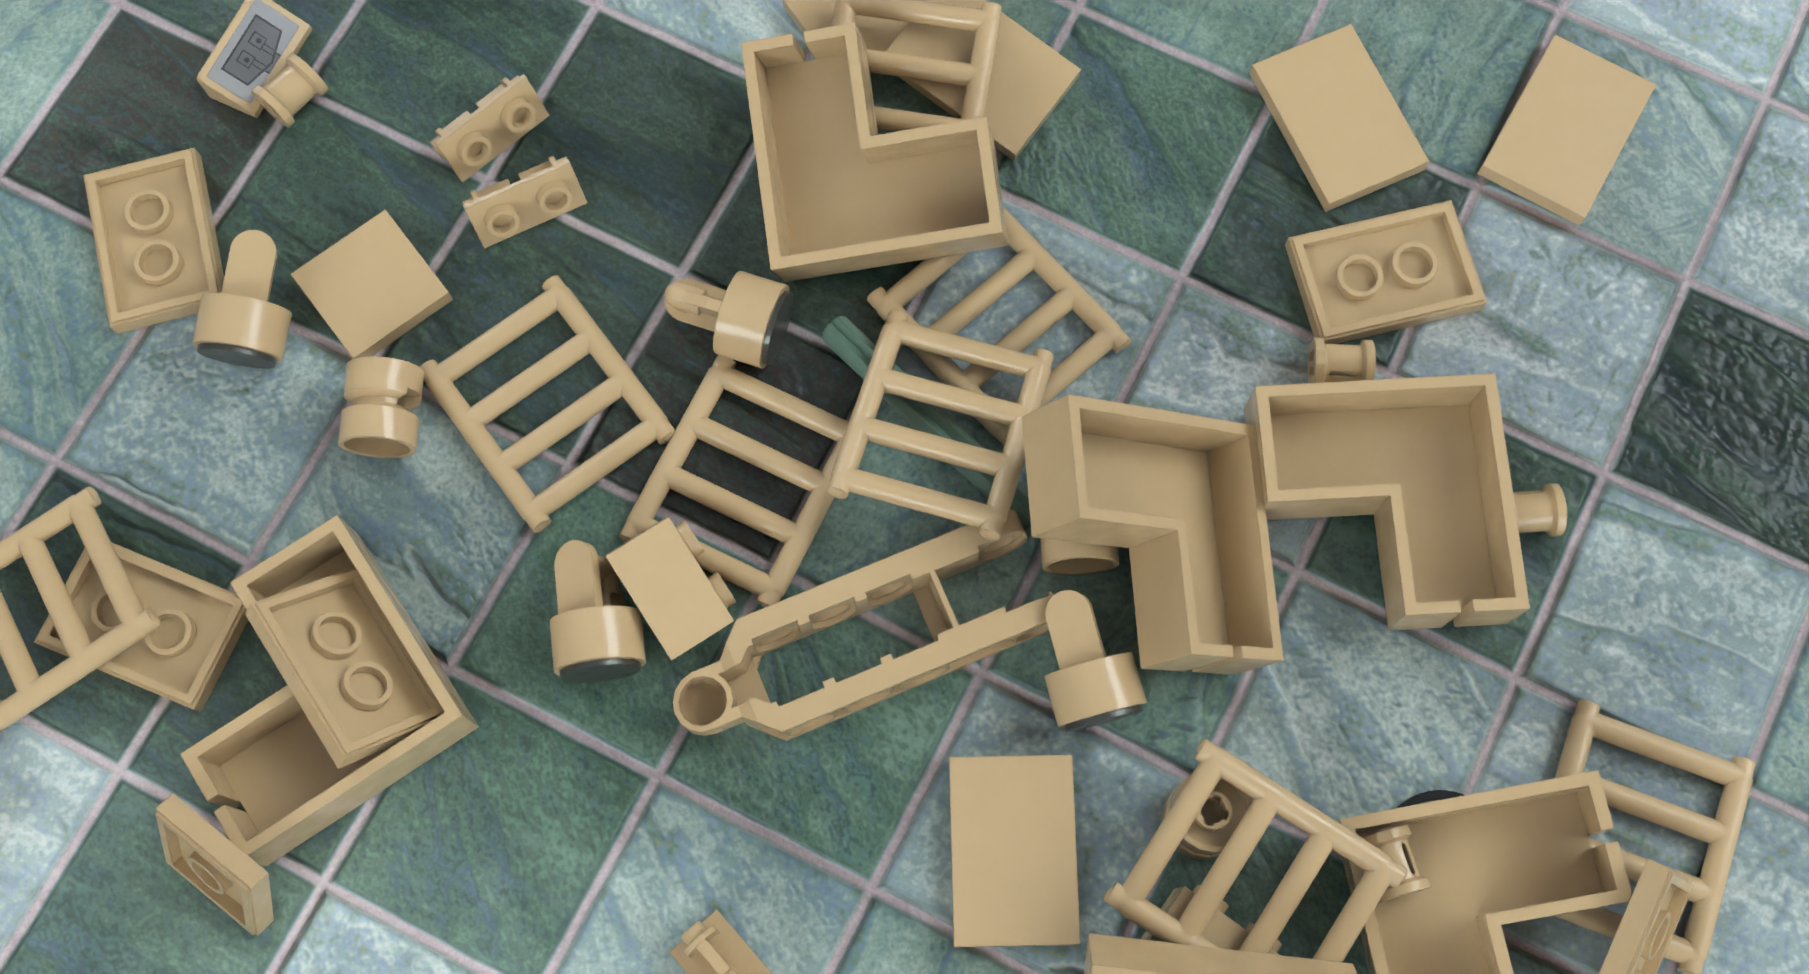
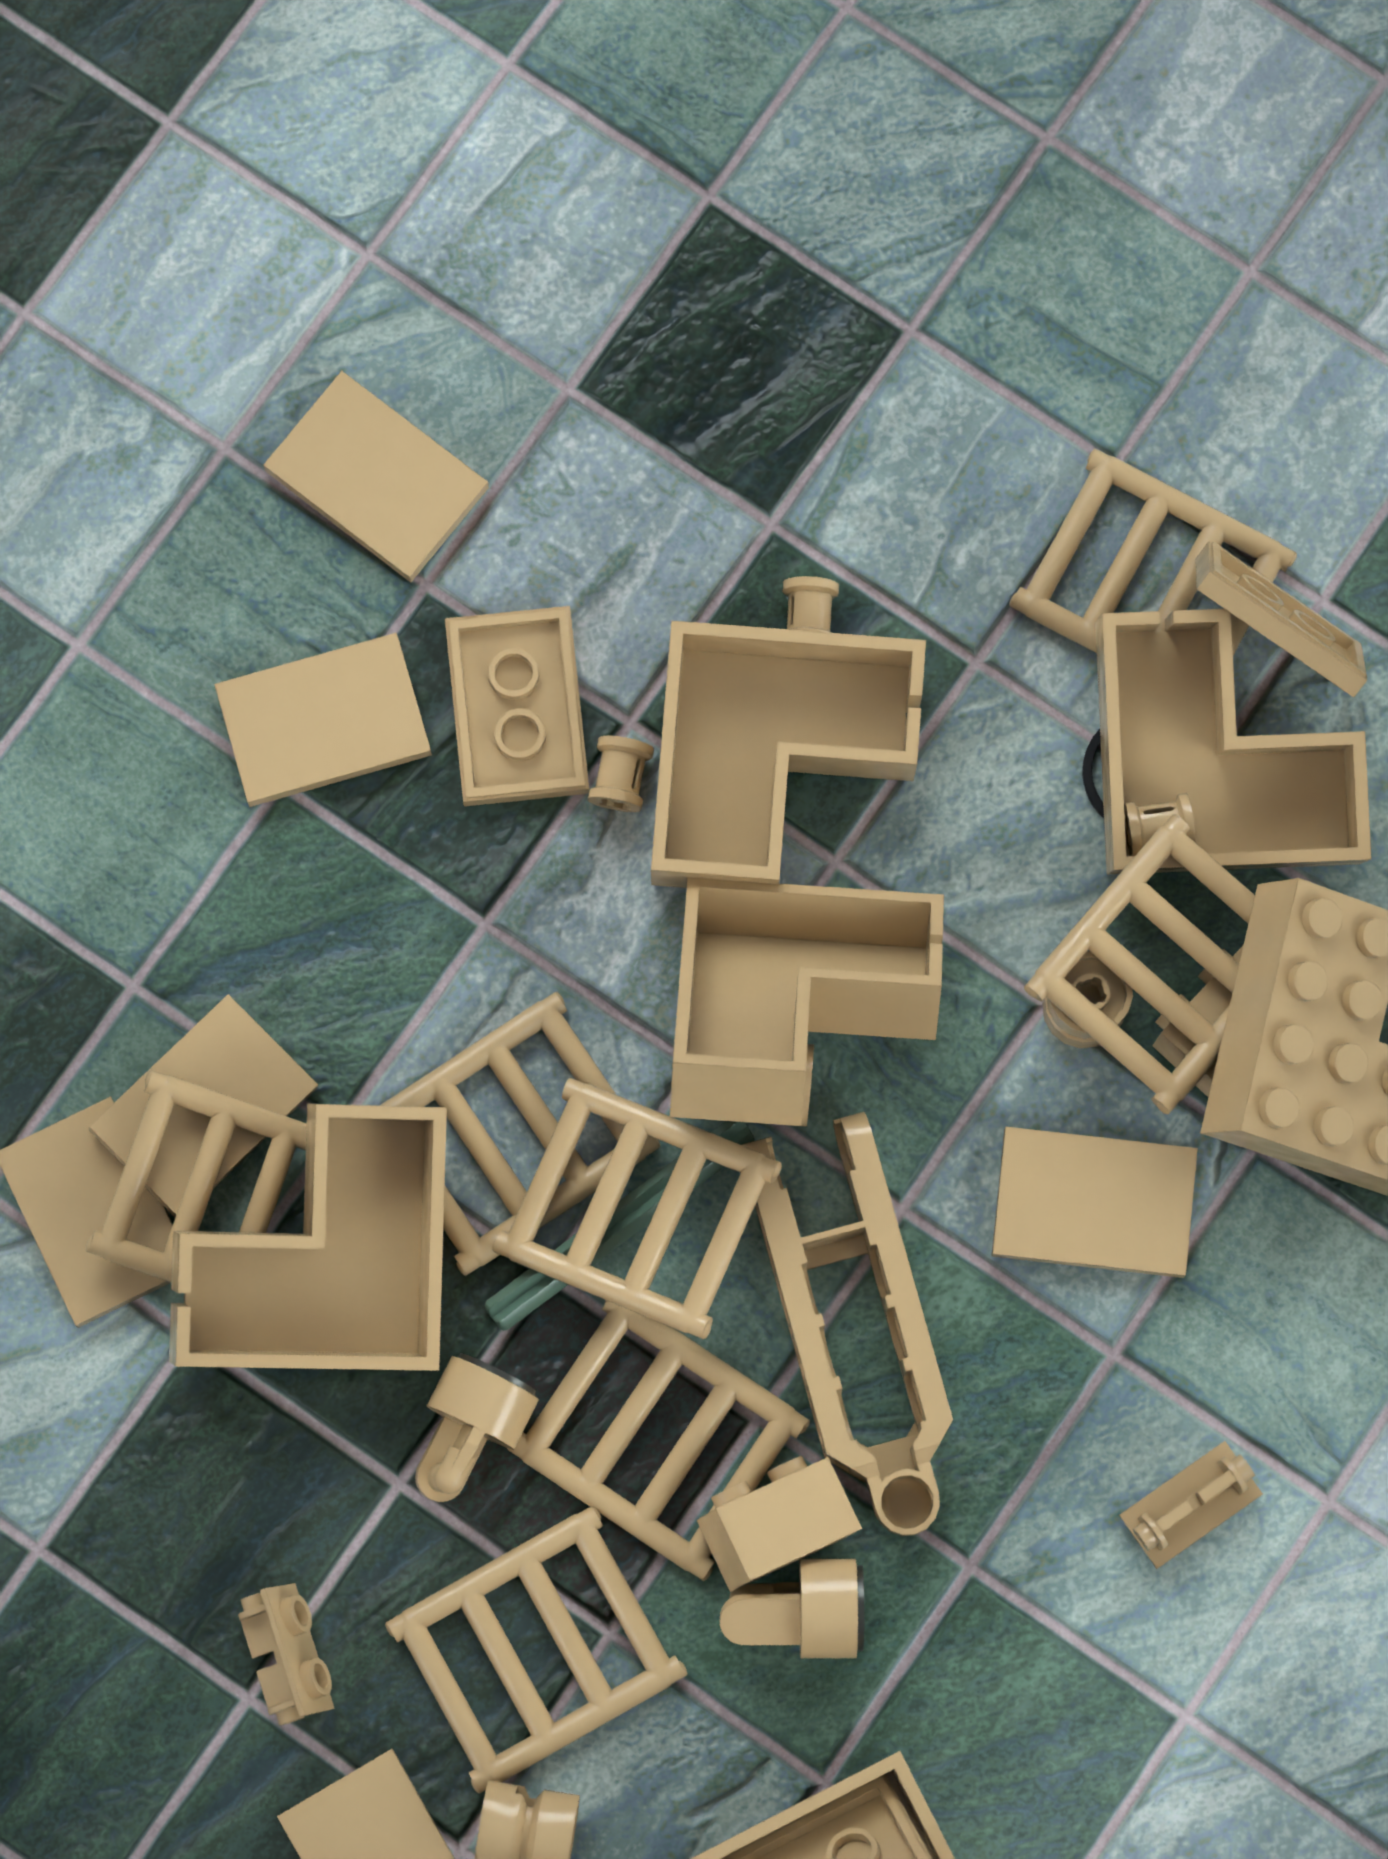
camera: 85 degrees left, 5 degrees up
(496, 124) = (172, 1661): tan hinge -> none
(1089, 684) = (939, 1095): tan piece -> none

